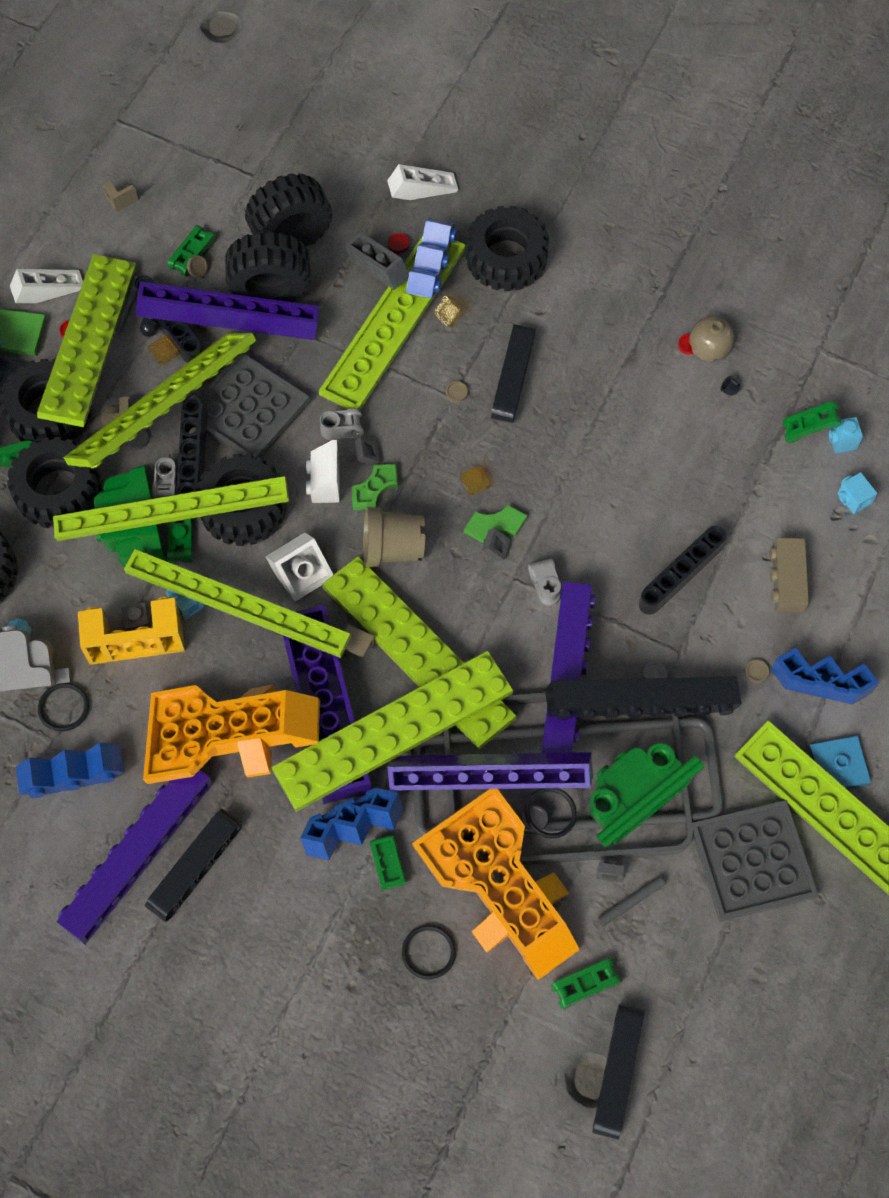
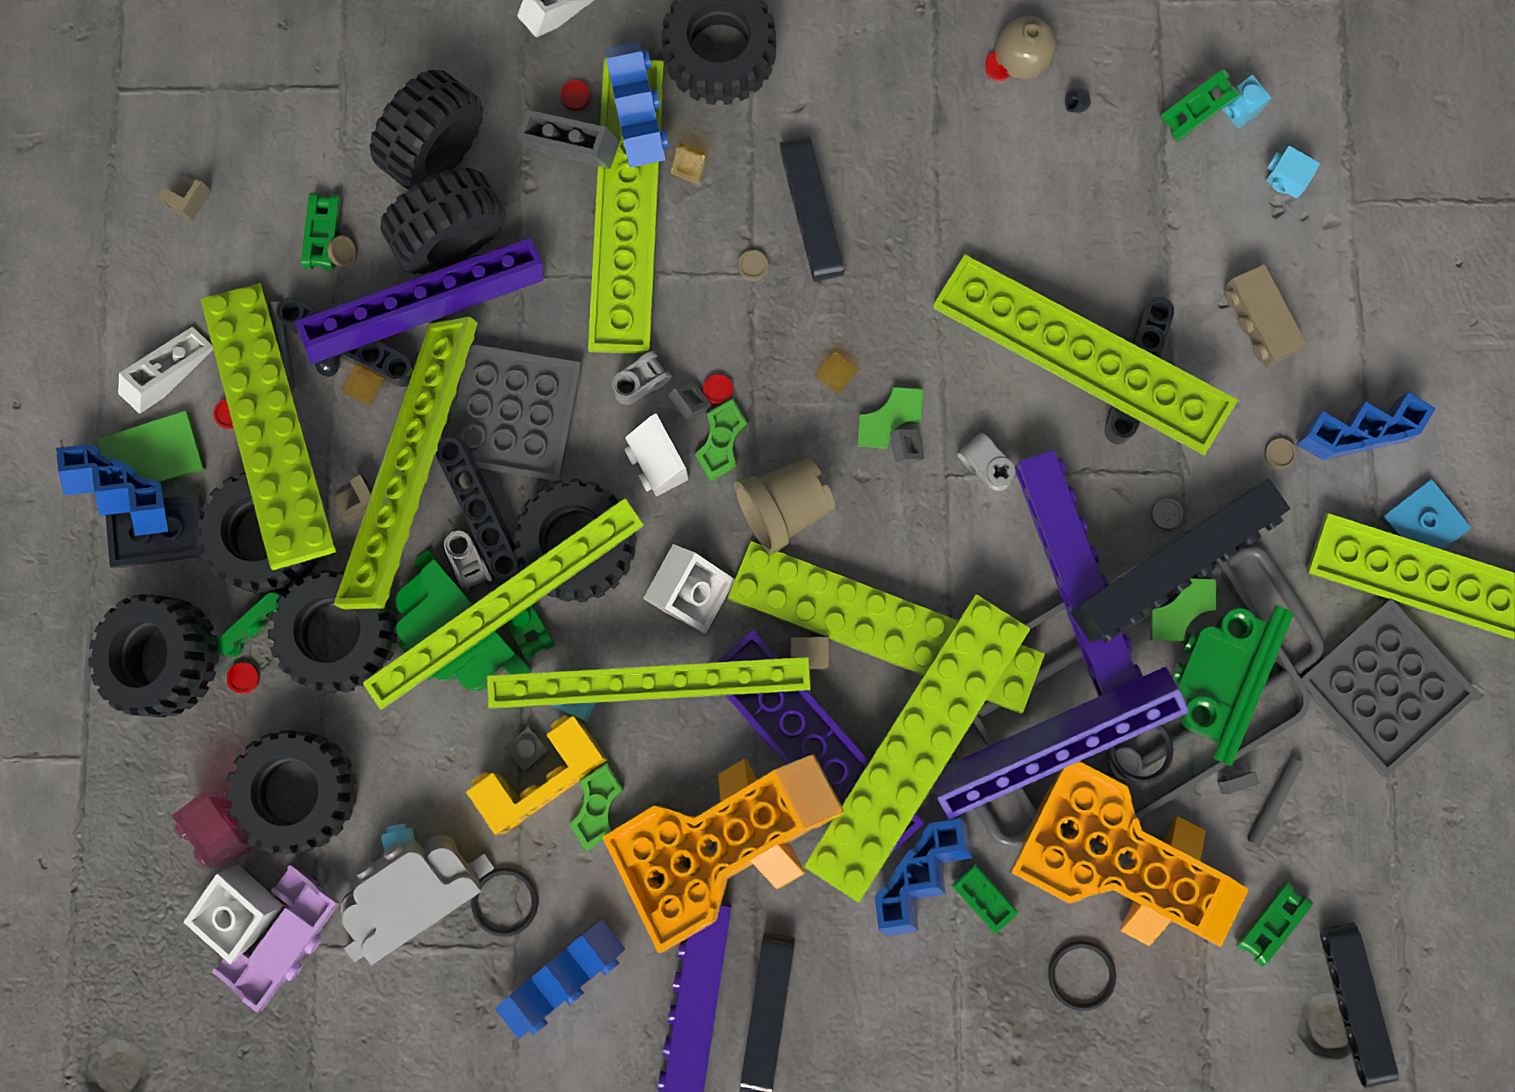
camera: 25 degrees left, 15 degrees up
(167, 666) = (599, 793): none -> bright green tile
(390, 455) = (717, 389): none -> red piece
(621, 737) = (1171, 621): none -> bright green tile
(649, 540) = (1085, 355): none -> lime plate

